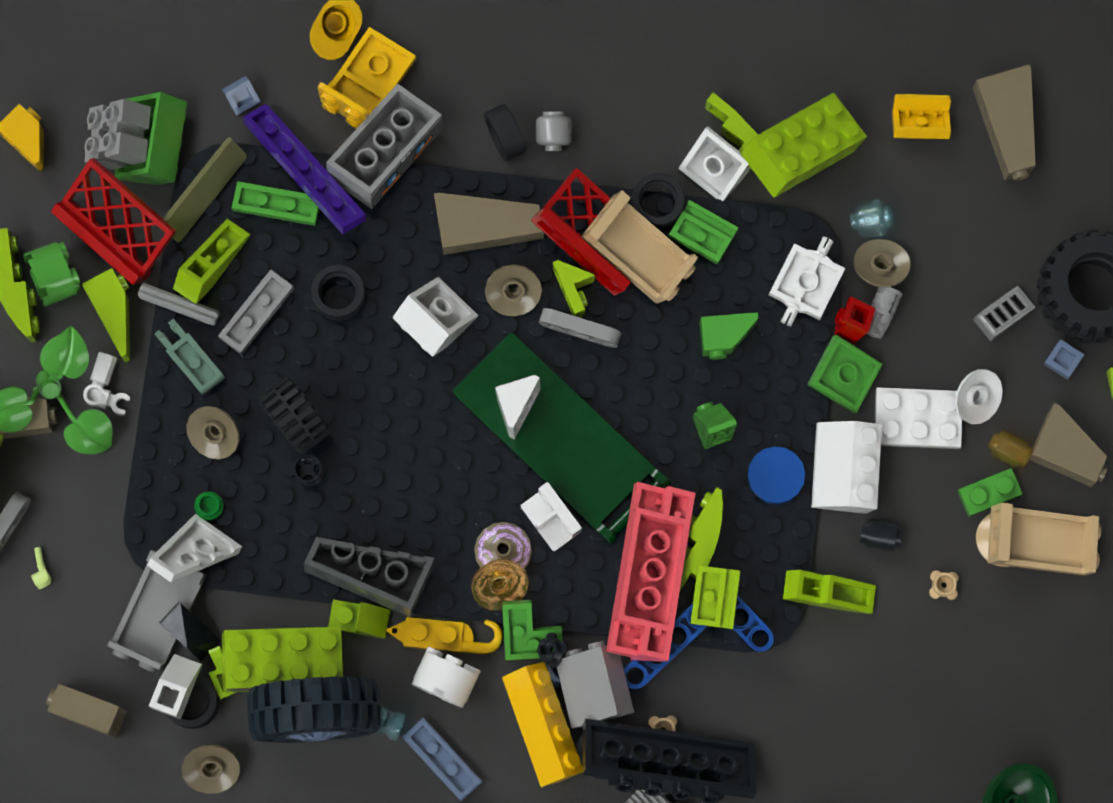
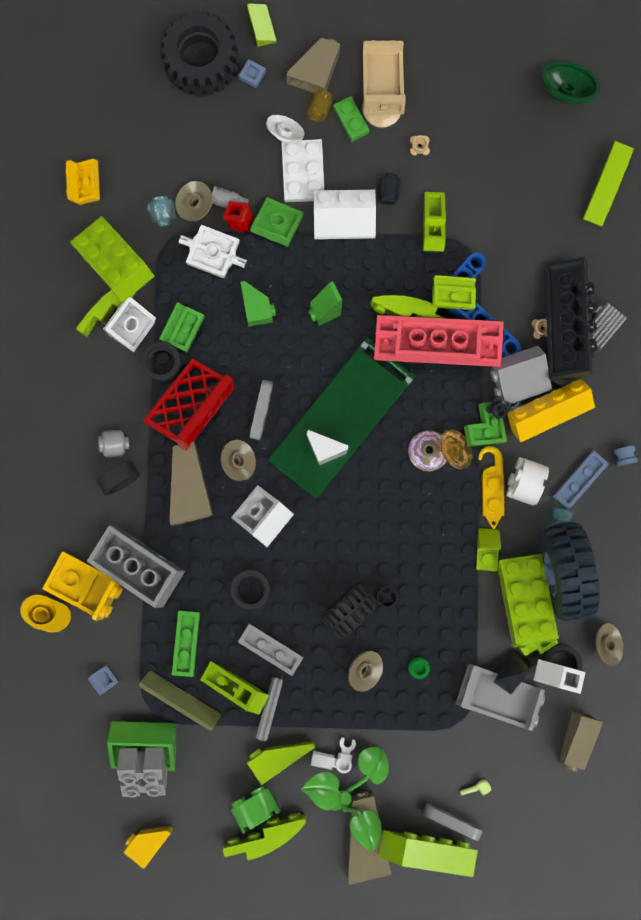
camera: 95 degrees left, 5 degrees up
(106, 242) = (222, 773): red fence -> none
(191, 359) = (310, 694): sand green hinge -> none
(192, 549) = (457, 676): white wing -> none
(304, 169) = (158, 625): dark purple plate -> none
(372, 573) = (459, 537): dark grey wedge -> none
(551, 517) = (402, 418): white panel -> none
(570, 279) = (226, 421): lime slope -> none
(638, 249) = (200, 370): tan panel -> none
(776, 475) = (355, 263): blue tile -> none
(986, 325) = (231, 128): light grey slope -> none
(1008, 117) = (80, 120): dark tan slope -> none

